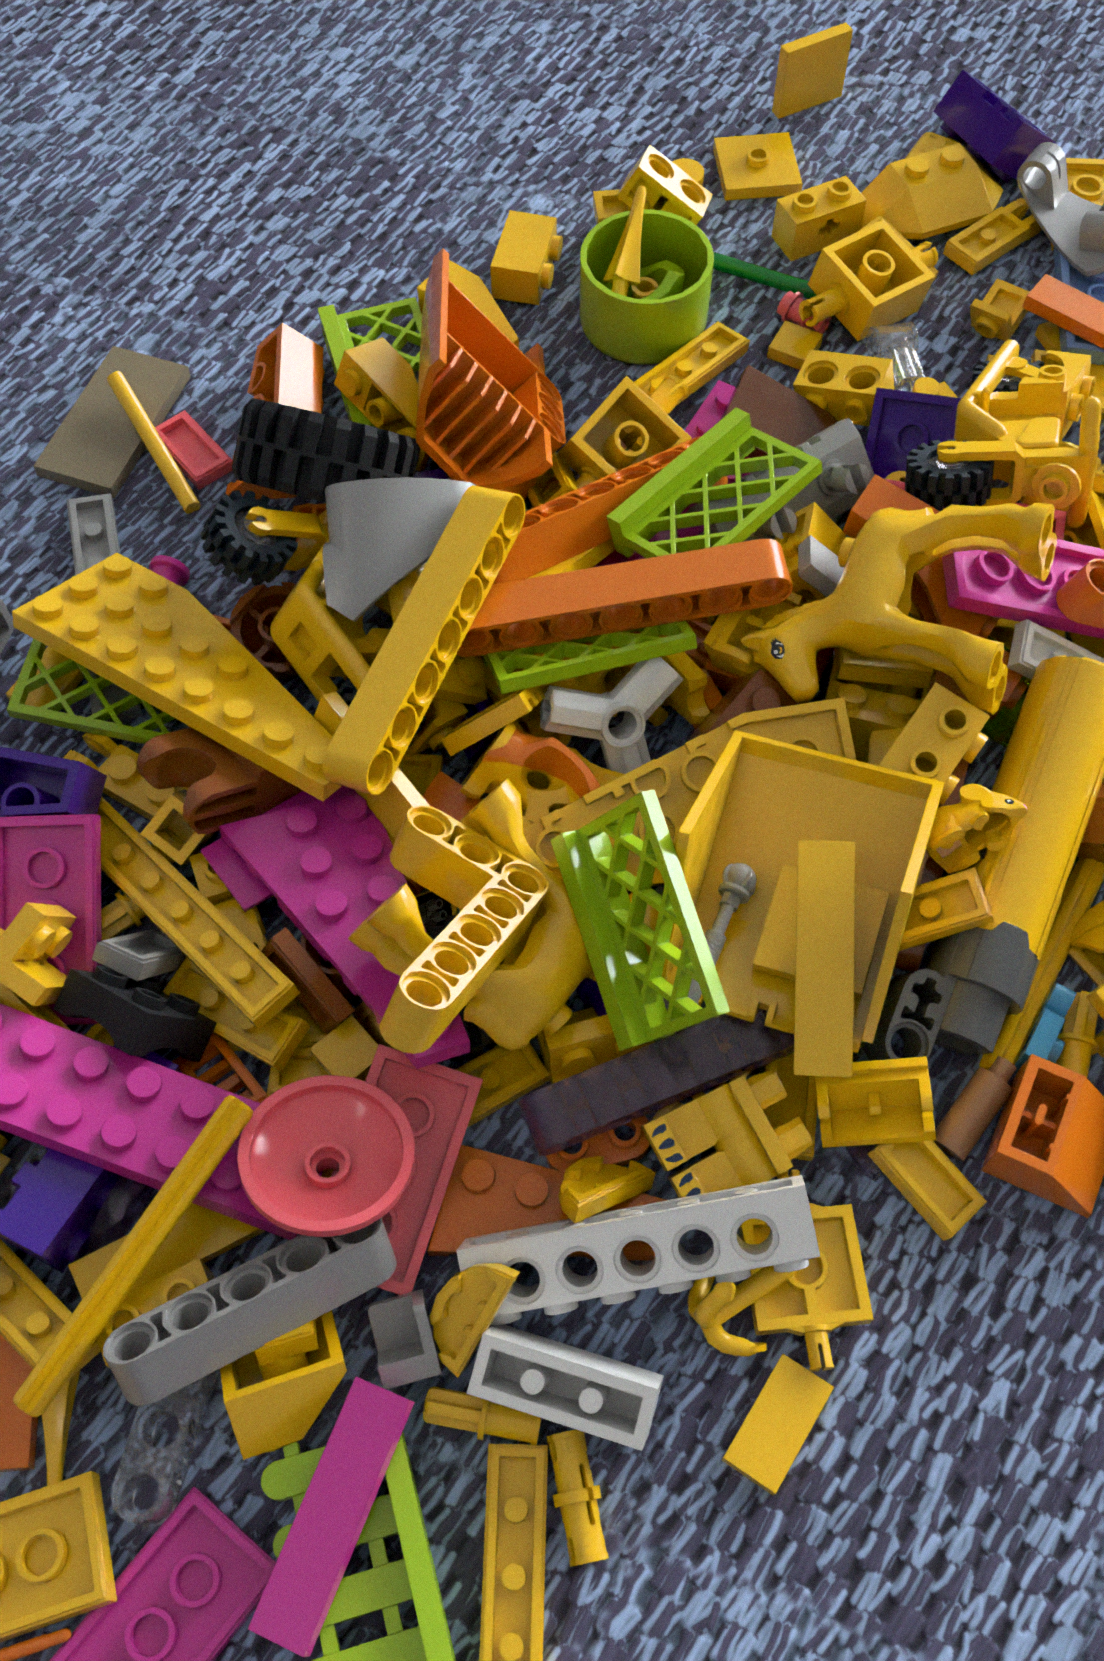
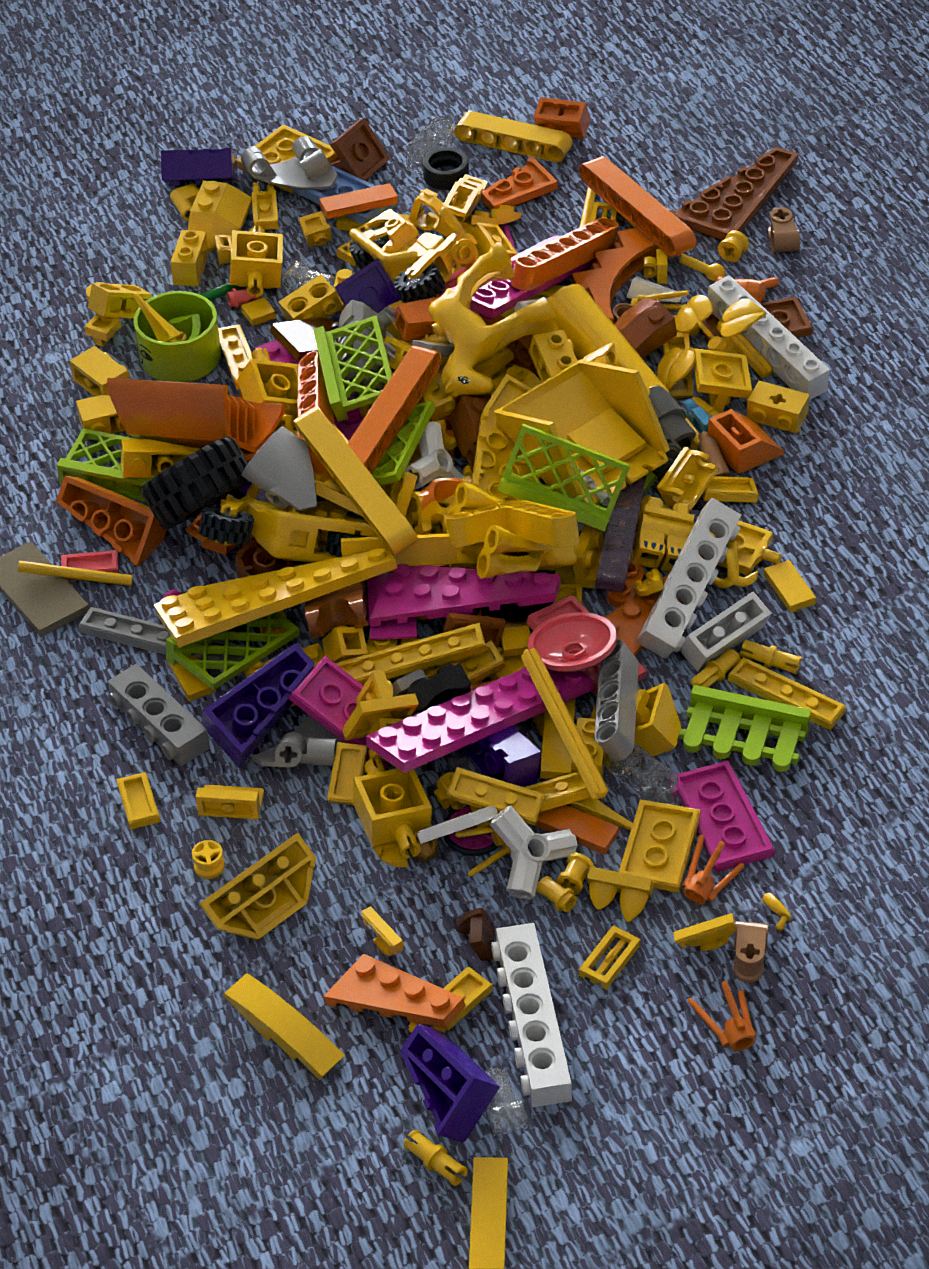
camera: 55 degrees left, 15 degrees down
(331, 1517) = (722, 719): dark pink tile -> none
(404, 1339) = (665, 669): light grey panel -> none
(467, 1309) = (672, 642): yellow tile -> none
(757, 166) = (121, 263): yellow plate -> none
(811, 70) = (89, 205): yellow tile -> none
(825, 959) = (624, 436): yellow slope -> none

